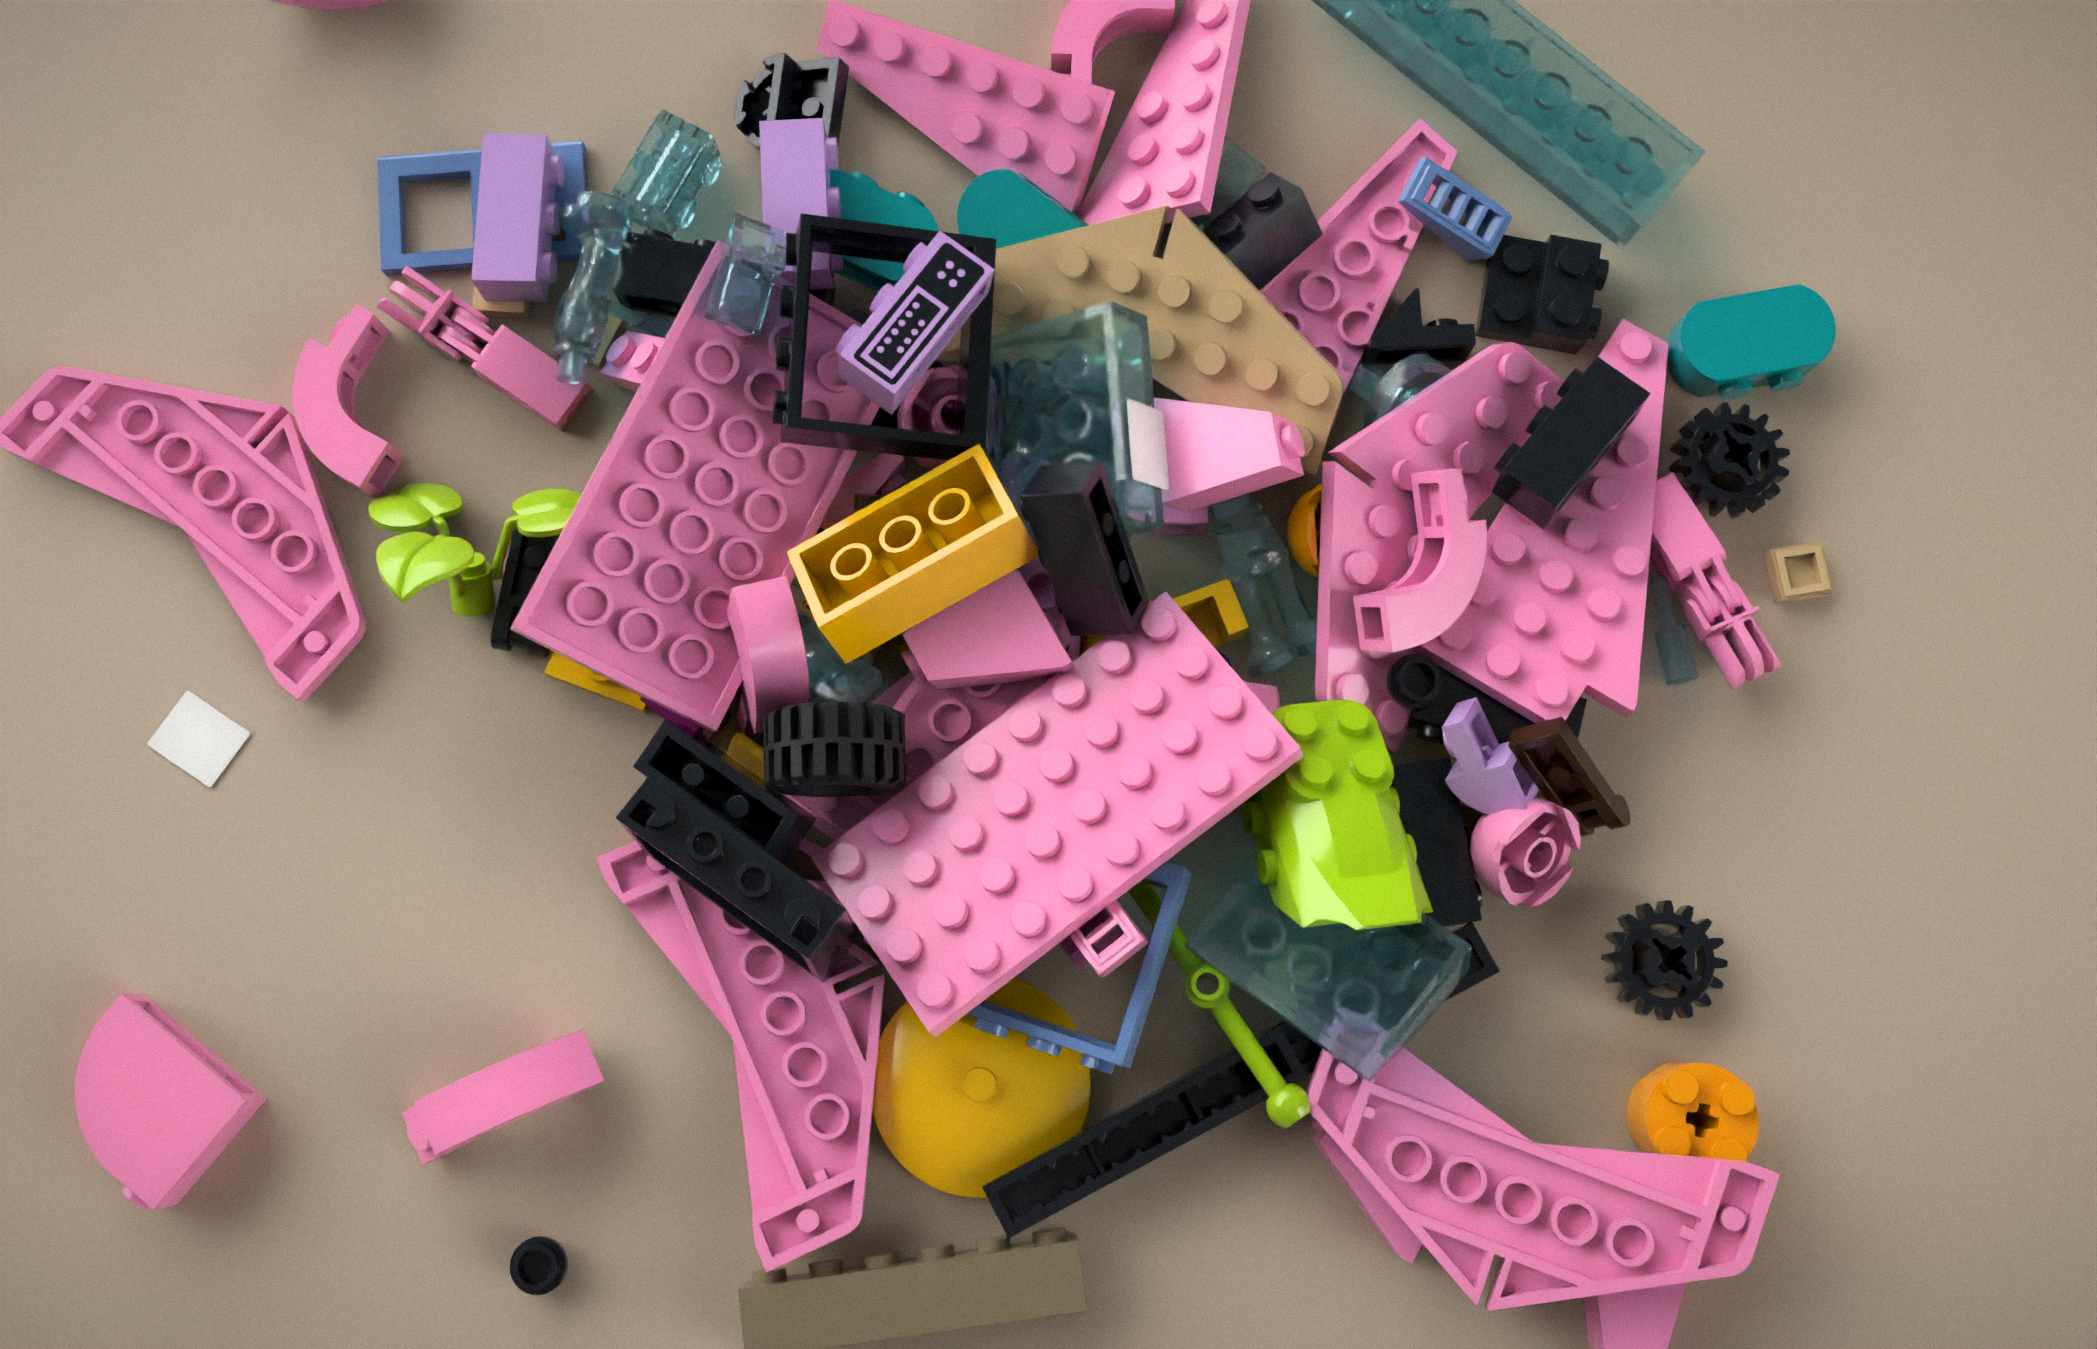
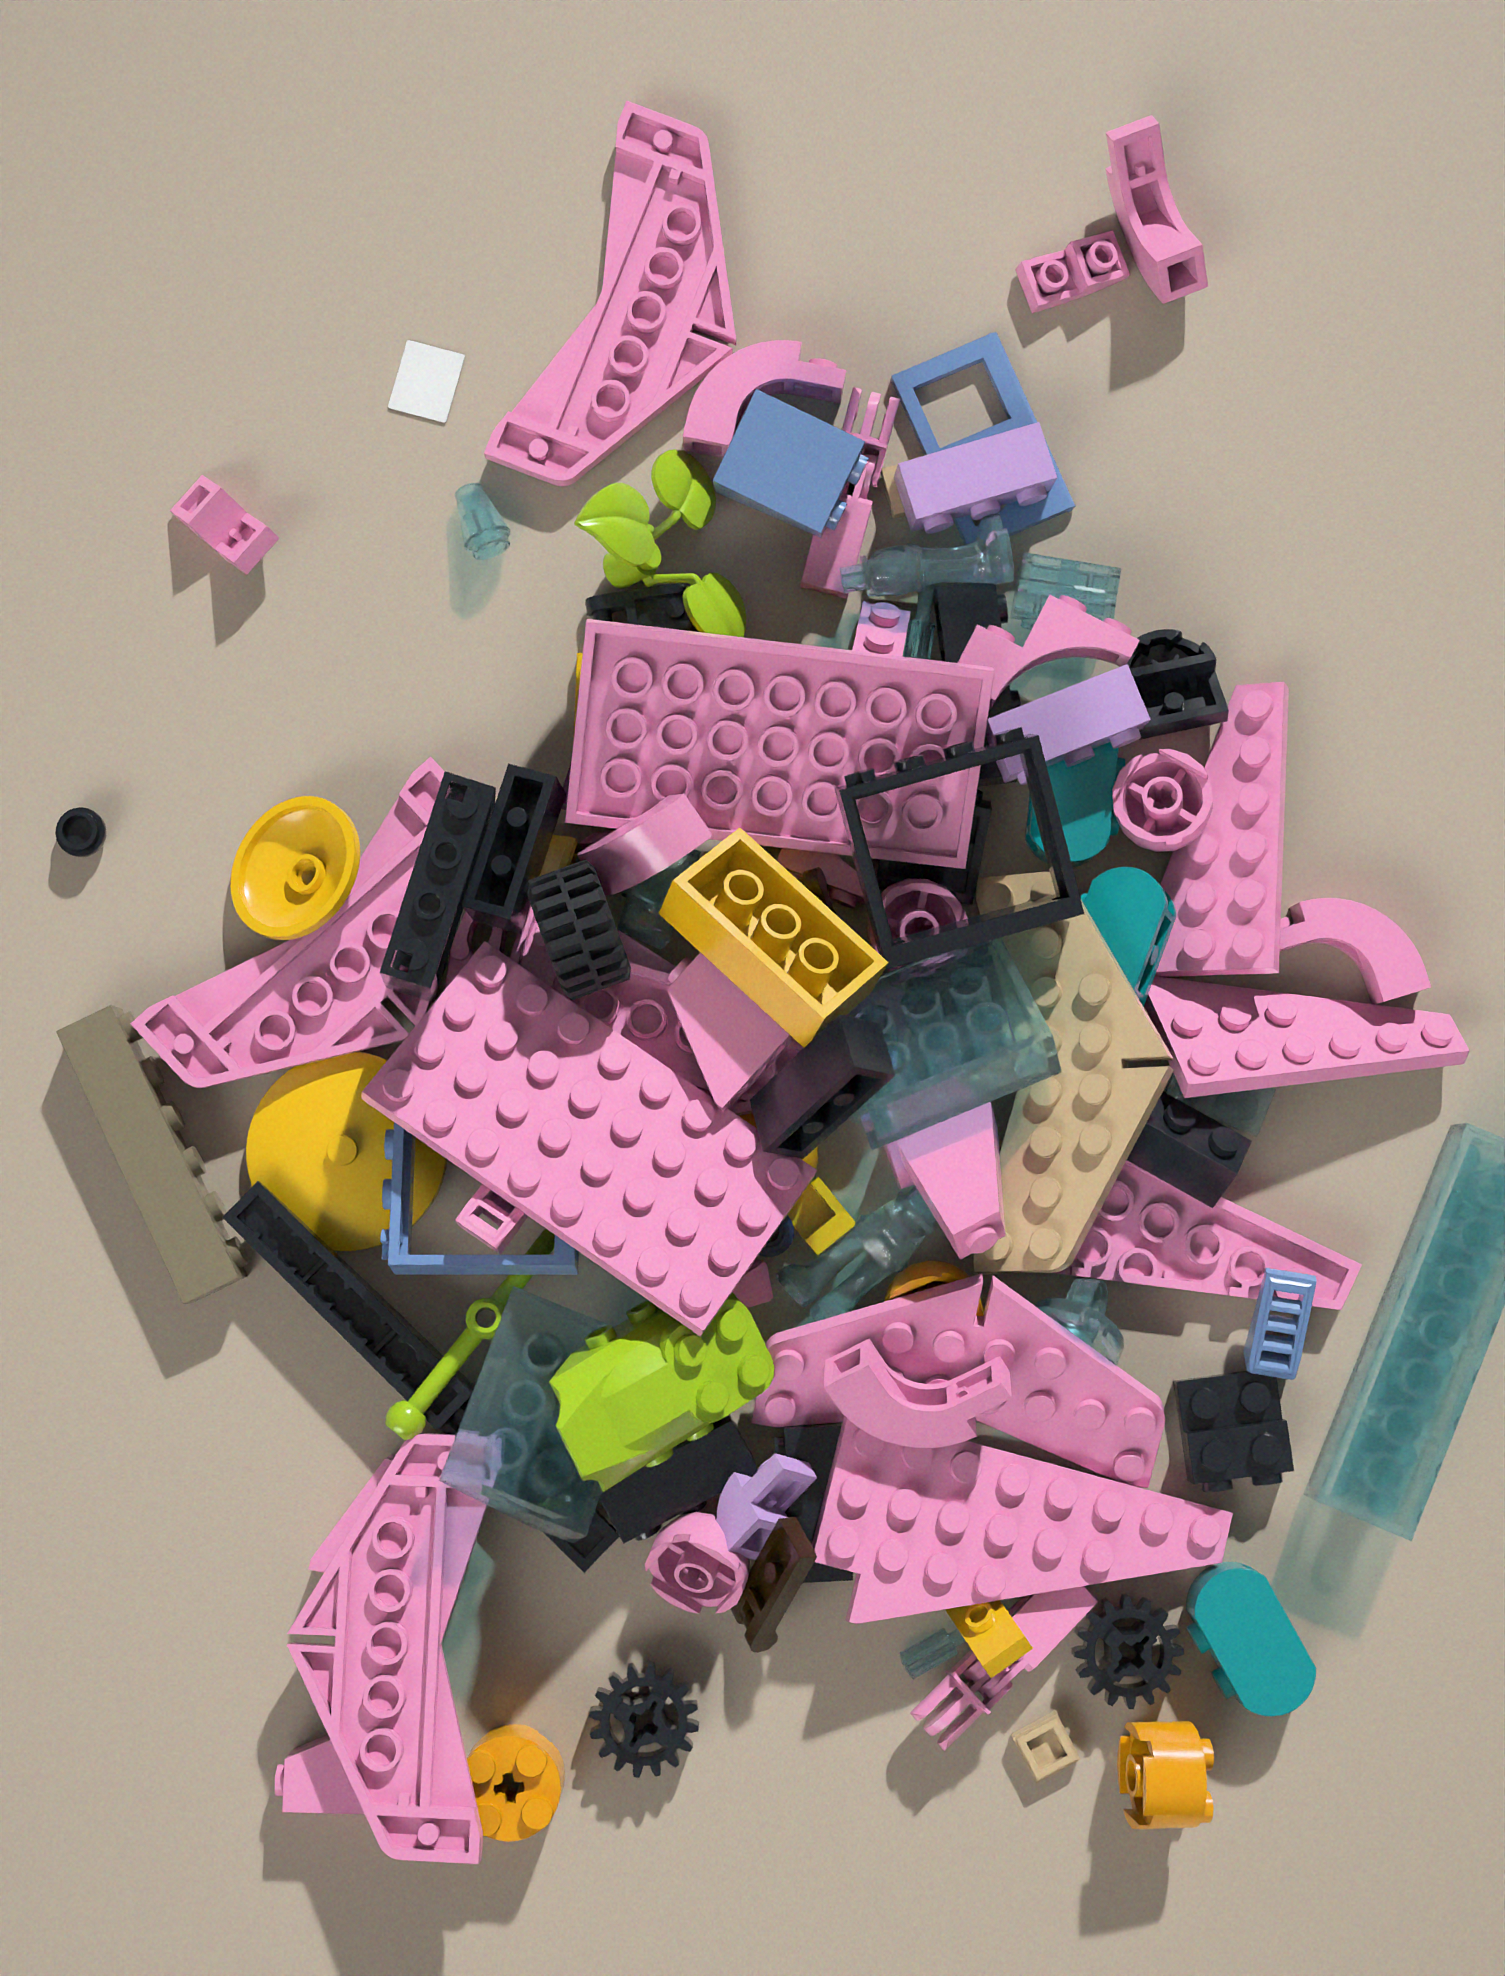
camera: 70 degrees right, 5 degrees up
(156, 1101) = (114, 469): bright pink brick -> none
(265, 1001) = (224, 524): none -> bright pink slope
(348, 65) = (1073, 272): none -> bright pink slope
(371, 727) = (480, 522): none -> clear light blue cone
(431, 385) = (790, 465): none -> medium blue slope
(501, 1095) = (206, 752): bright pink arch -> none
(644, 1049) = (295, 868): none -> yellow dish
(702, 181) = (1058, 633): none -> bright pink arch
(746, 274) = (973, 706): clear light blue slope -> none
(906, 143) = (1162, 800): none -> bright pink cylinder
(913, 321) = (973, 867): lavender brick -> none
(1148, 445) = (938, 1111): white sticker -> none
(1405, 336) = (1140, 1314): black slope -> none
(1414, 681) = (814, 1418): black plate -> none
(1568, 441) = (1082, 1492): black brick -> none
(1683, 579) = (990, 1634): none -> yellow plate
(1863, 460) = (1165, 1775): none -> light orange brick

